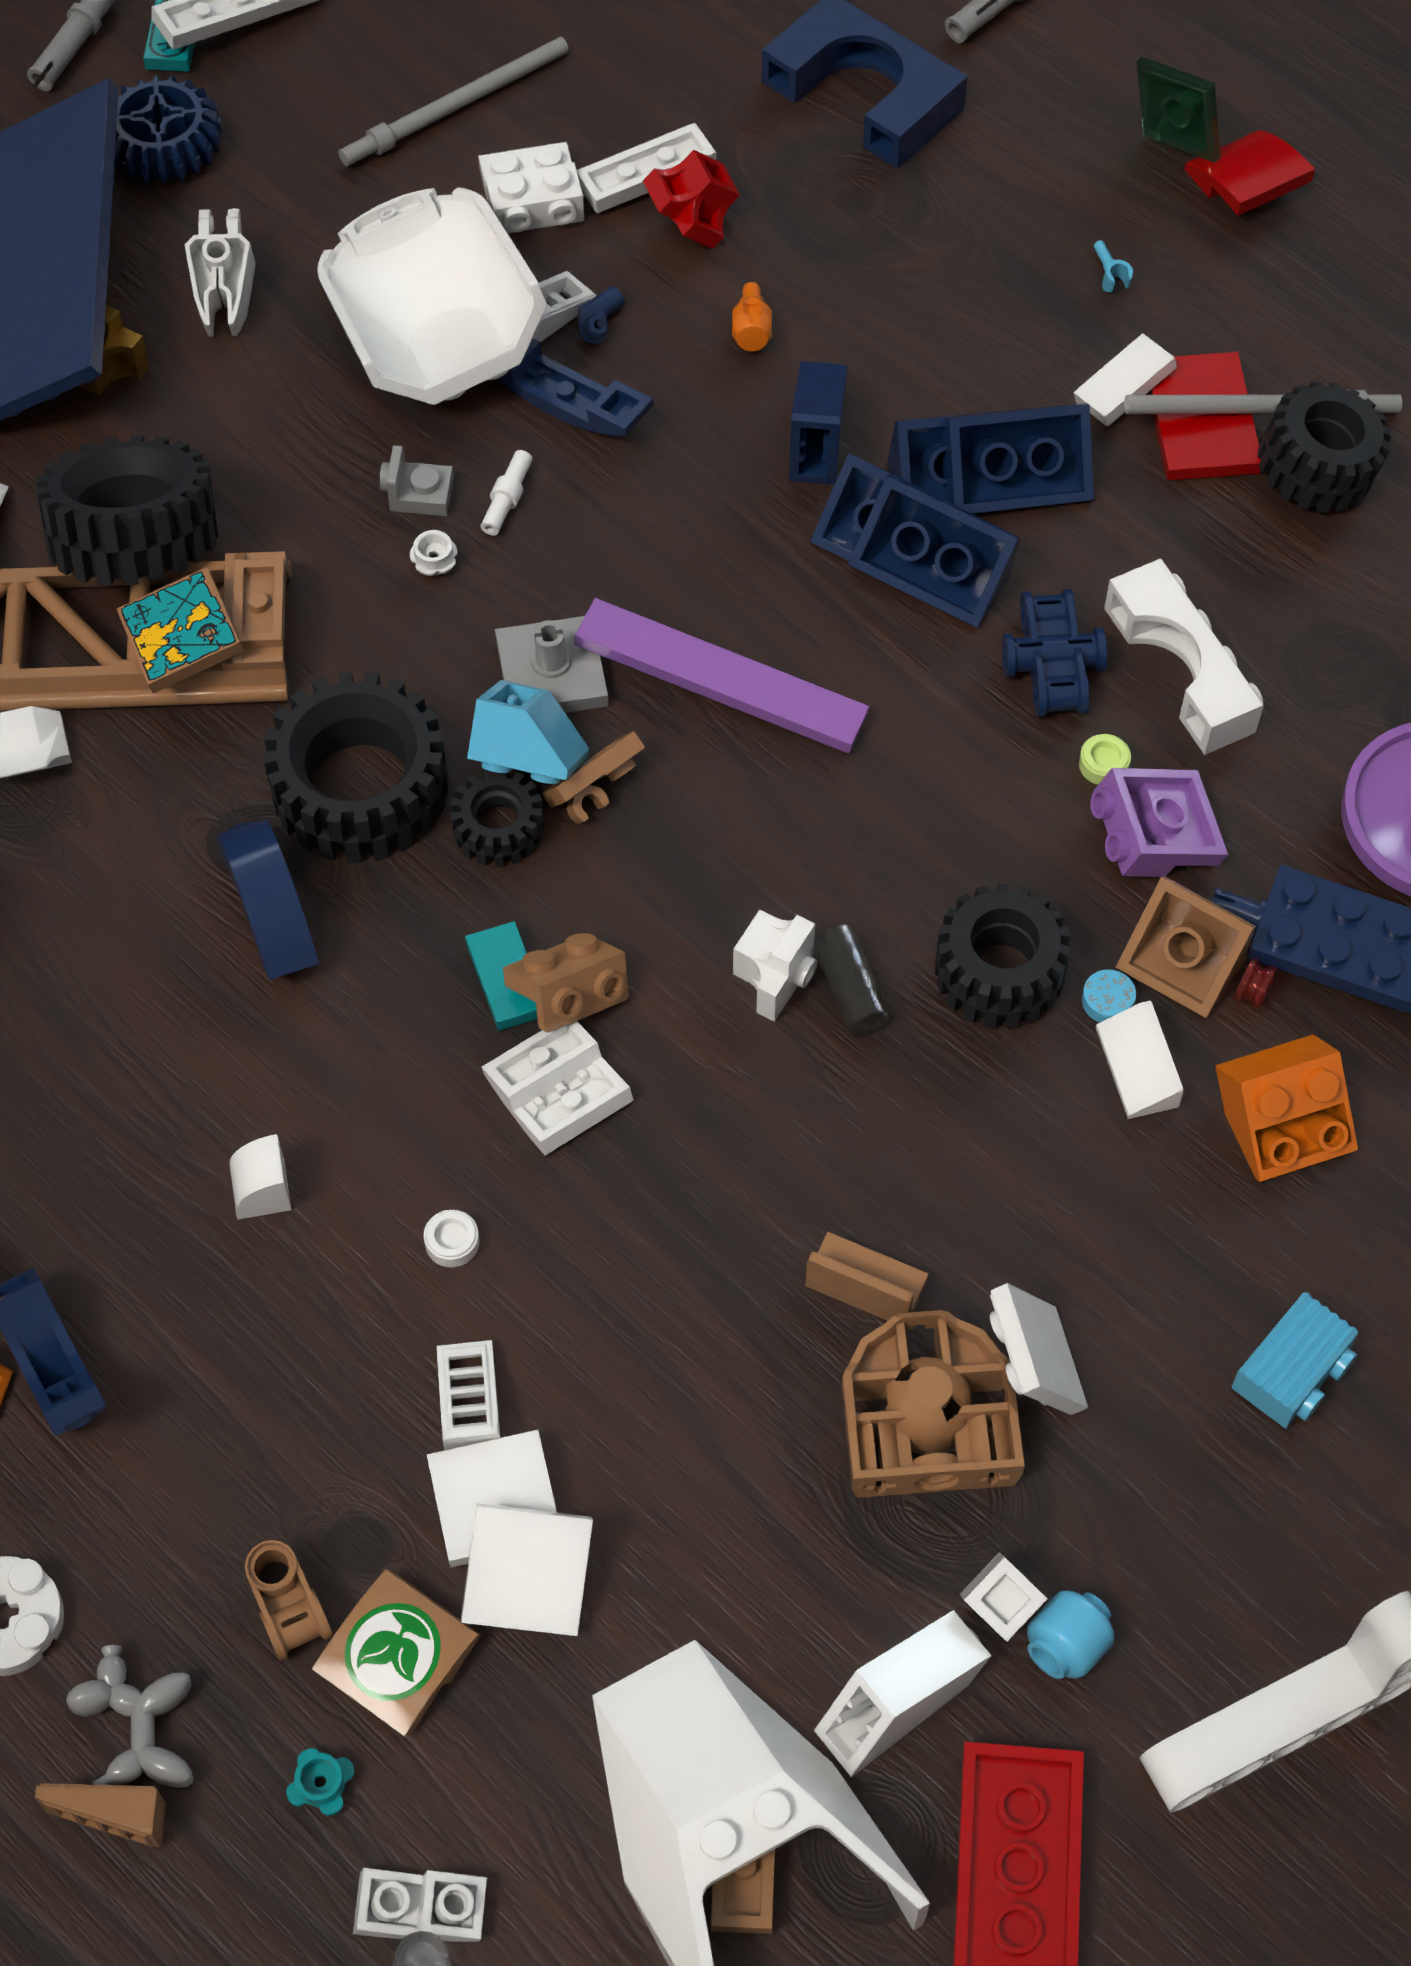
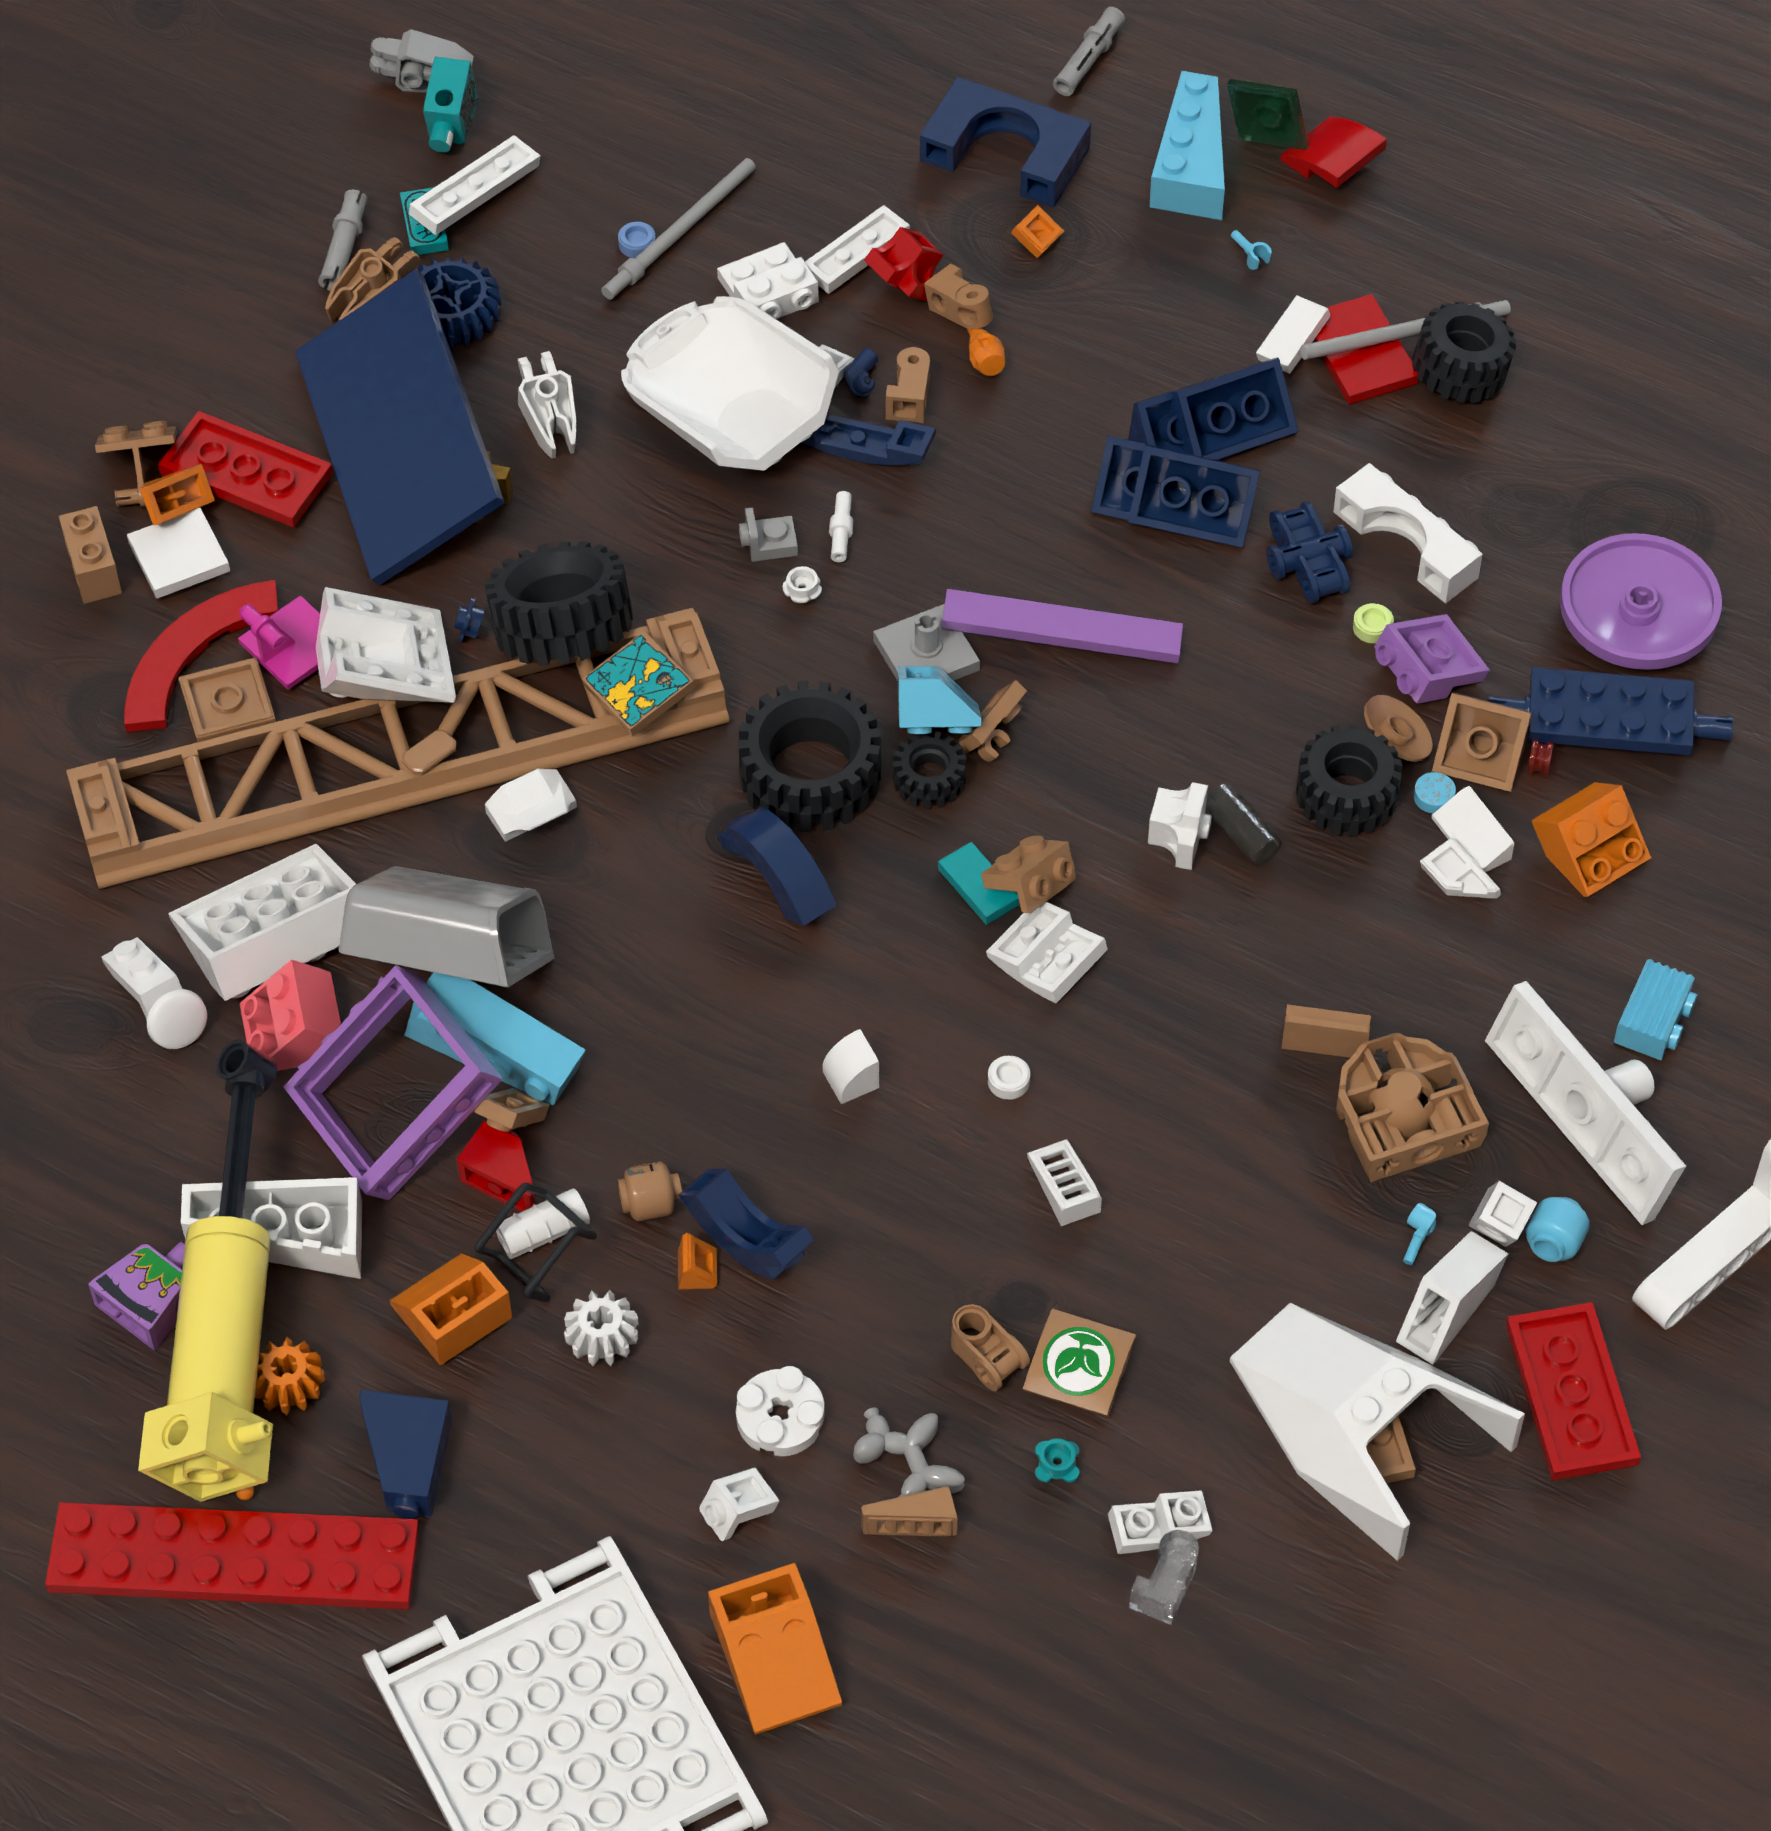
camera: 15 degrees left, 5 degrees down
(27, 509) = (469, 620): none -> dark blue plate
(75, 72) = (368, 276): none -> medium nougat hinge
(400, 100) = (635, 238): none -> medium blue tile
(491, 1472) = (1111, 1243): white tile -> none
(526, 1569) = (1156, 1280): white tile -> none
(650, 345) = (909, 398): none -> medium nougat leg
(739, 252) = (958, 299): none -> medium nougat leg
(817, 422) = (1068, 418): dark blue slope -> none
(864, 192) = (1037, 231): none -> orange tile
(905, 1576) = (1424, 1221): none -> medium azure hand
(1037, 1349) = (1475, 1052): white tile -> none
(1073, 139) = (1190, 157): none -> medium azure wedge
(1088, 901) = (1400, 726): none -> medium nougat dish
(1103, 1109) = (1458, 873): none -> white tile
(1167, 1471) = (1588, 1103): none -> white plate

